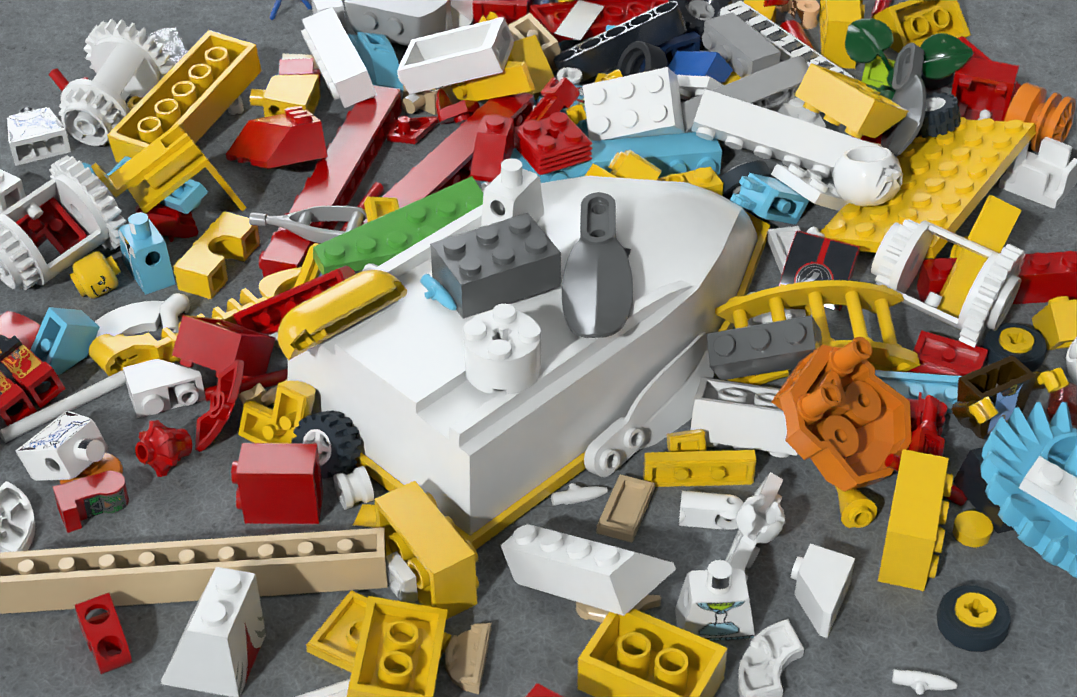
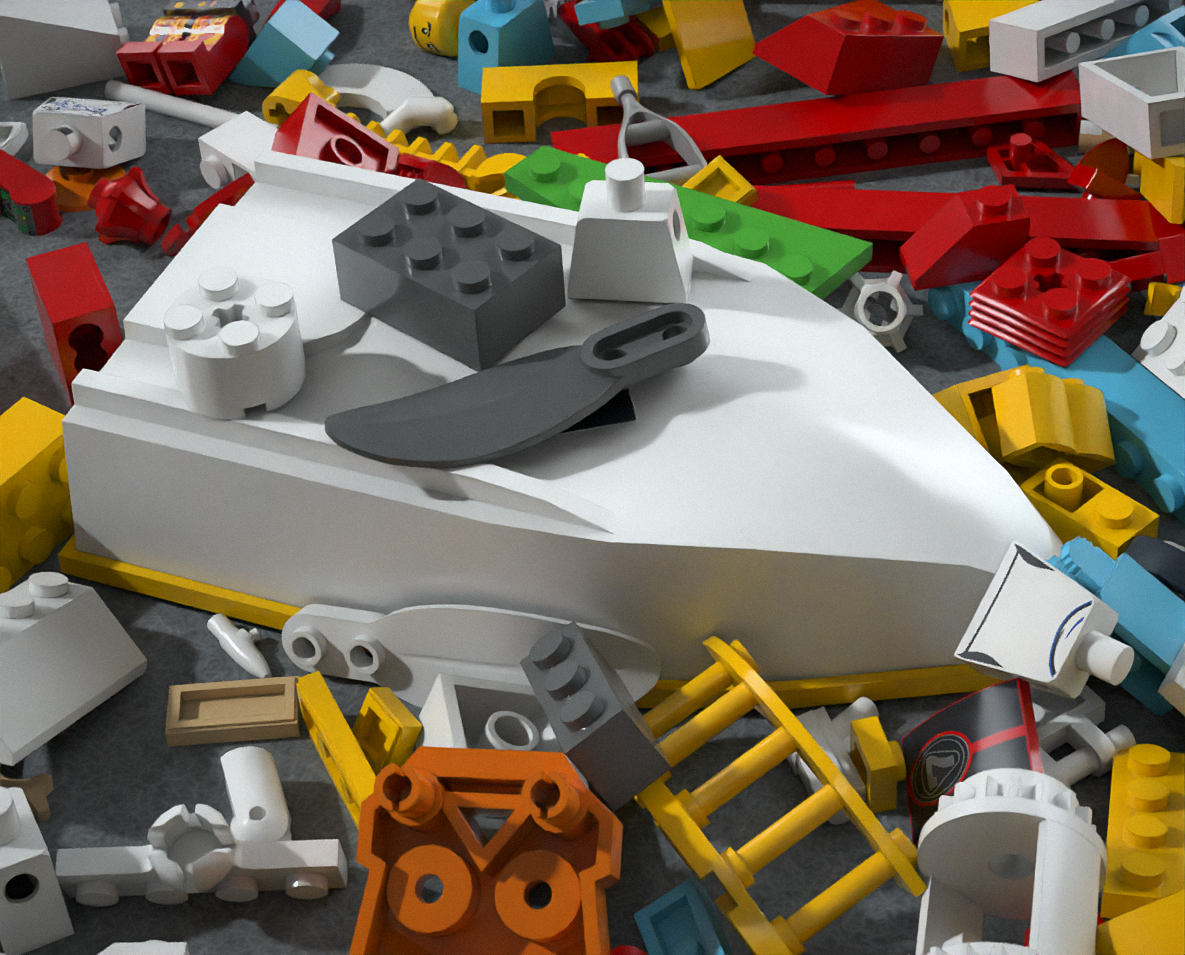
camera: 70 degrees right, 0 degrees up
(337, 310) = (286, 175): yellow brick -> none
(778, 209) = (1043, 629): none -> white torso

